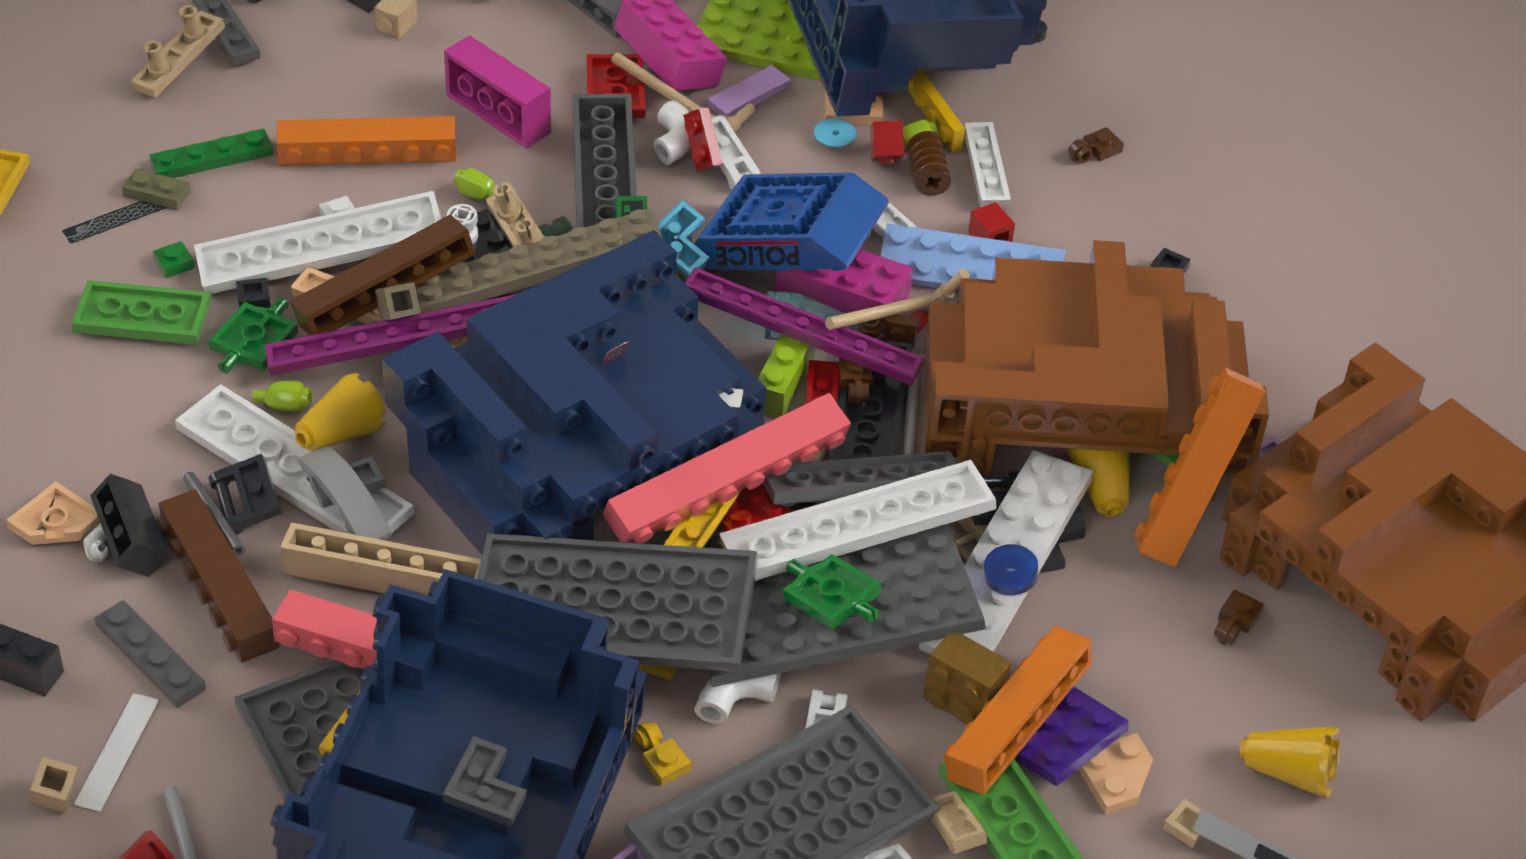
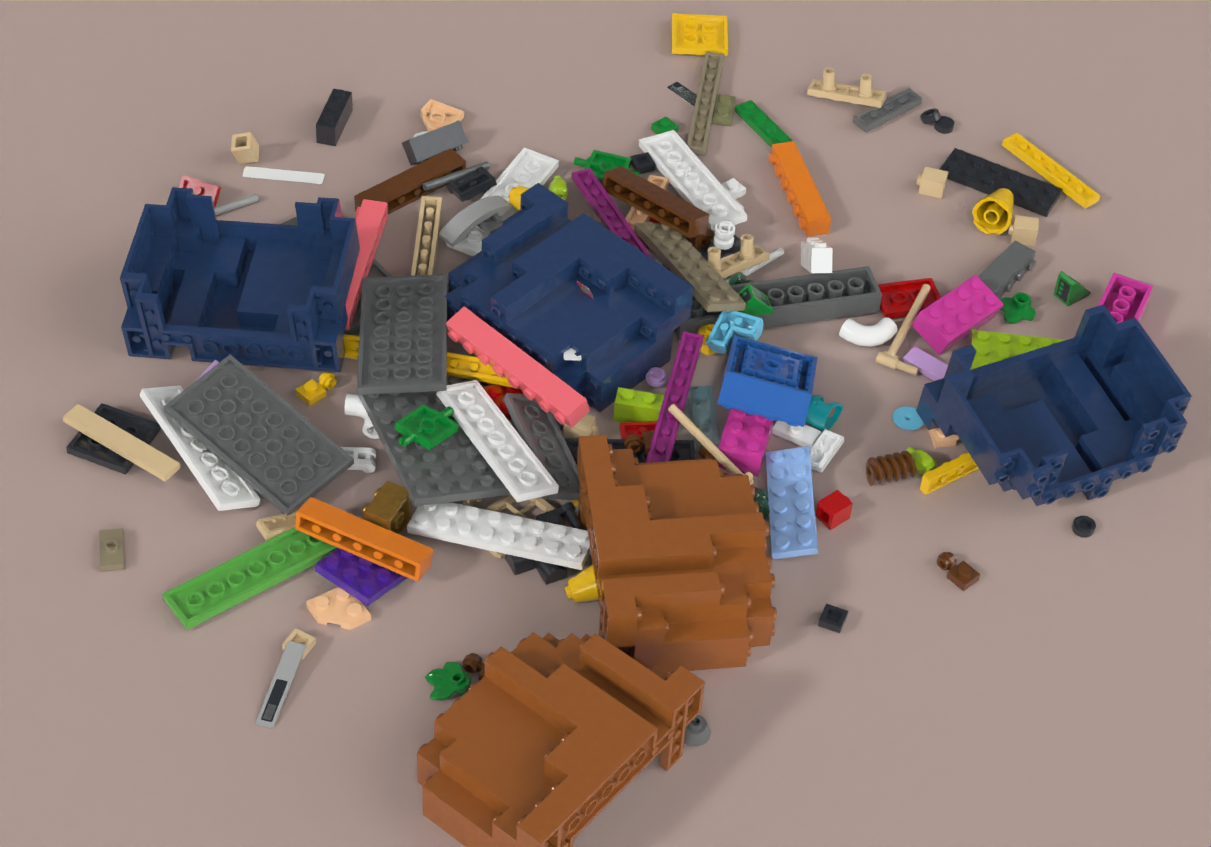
camera: 80 degrees right, 0 degrees up
(134, 202) = (705, 103): none -> dark tan plate
(141, 312) = (612, 121): bright green plate -> none
(150, 654) = (351, 173): dark grey plate -> none
(397, 301) = (630, 207): dark tan brick -> none
(474, 184) = (777, 242): lime plant -> none
(476, 786) = (247, 288): dark grey plate -> none
(498, 91) = (865, 233): dark pink brick -> none
(539, 139) = (816, 255): none -> white brick
(702, 139) = (850, 344): red plate -> none
(732, 152) = (856, 359): white plate -> none
(887, 142) = (900, 439): red brick -> none
(987, 164) = (905, 504): white plate -> none
(1011, 557) = (480, 526): clear blue piece -> none
(1199, 466) = (572, 598): orange brick -> none
(1257, 664) = (448, 681): none -> green plate
(1295, 756) = (355, 699): yellow cone -> none

